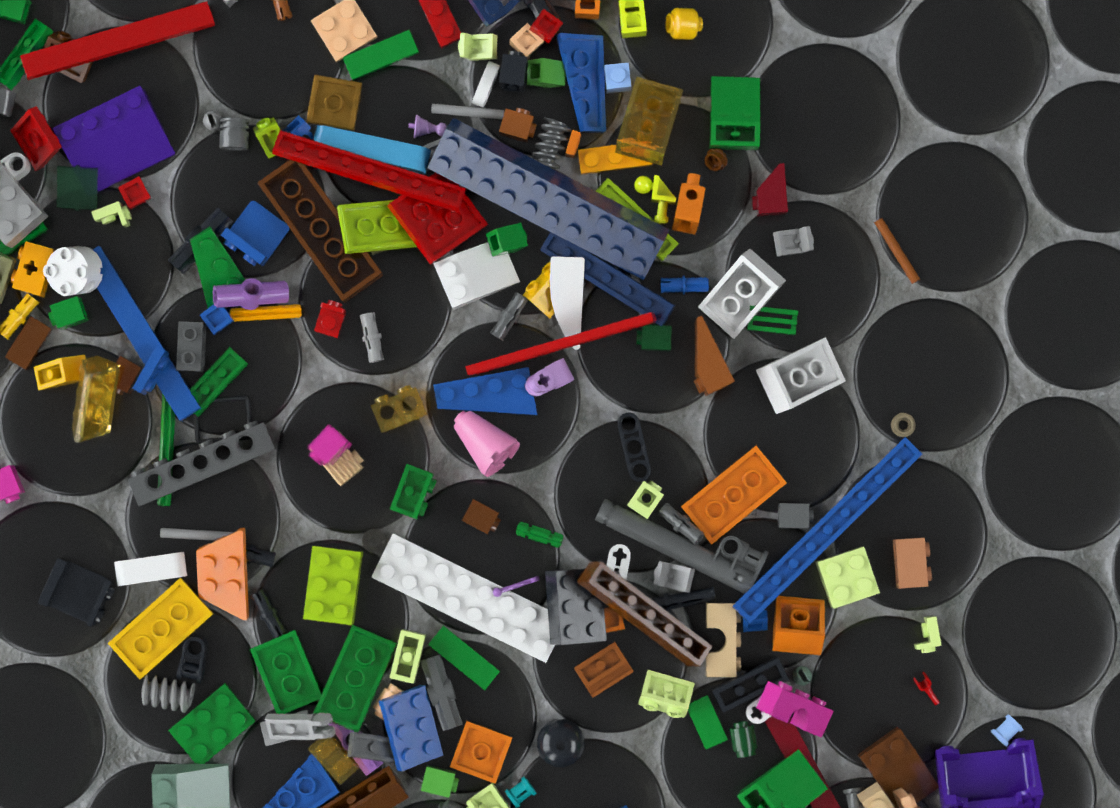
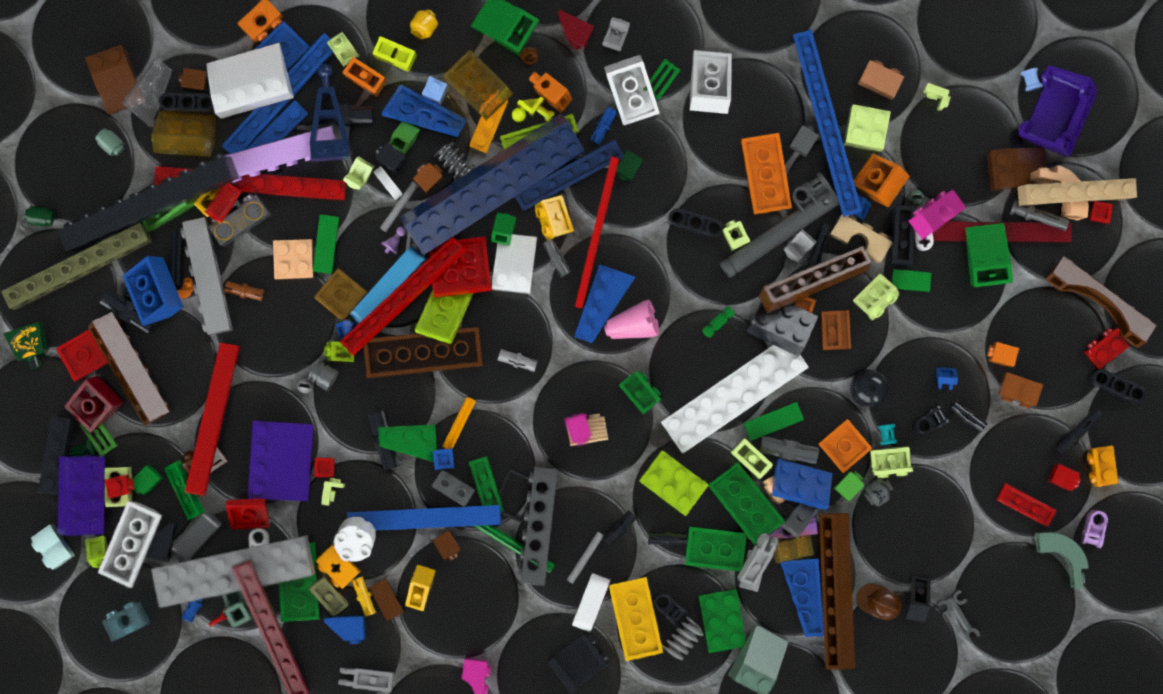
camera: 60 degrees left, 0 degrees up
(68, 313) = (381, 560): green brick -> none
(77, 187) = (298, 505): clear green piece -> none
(95, 398) = (452, 574): clear yellow slope -> none
(156, 363) = (459, 530): blue plate -> none
(224, 574) = (623, 553): orange wing -> none
(241, 294) = (440, 426): medium lavender piece -> none
(256, 234) = (400, 399): blue bracket -> none
(330, 319) = (488, 381): red bracket -> none
(401, 415) = (583, 369): clear yellow brick -> none
(481, 517) = (684, 354): reddish brown brick -> none
(497, 592) = (742, 372): medium lavender hinge -> none
(526, 41) = (374, 138): light nougat panel -> none
(546, 26) = (372, 118): red tile -> none
(551, 378) = (615, 253): lavender piece -> none
(567, 293) = (564, 208): white sticker -> none
(573, 144) = (460, 143): orange tile -> none
(624, 565) = (771, 275): white beam -> none
(681, 523) = (766, 220): dark grey pin -> none
(710, 366) = (669, 139): dark orange slope -> none
(743, 739) = (937, 261): dark green brick -> none
(910, 425) = (783, 25): dark tan plate -> none
(926, 686) = (970, 117): red hand -> none

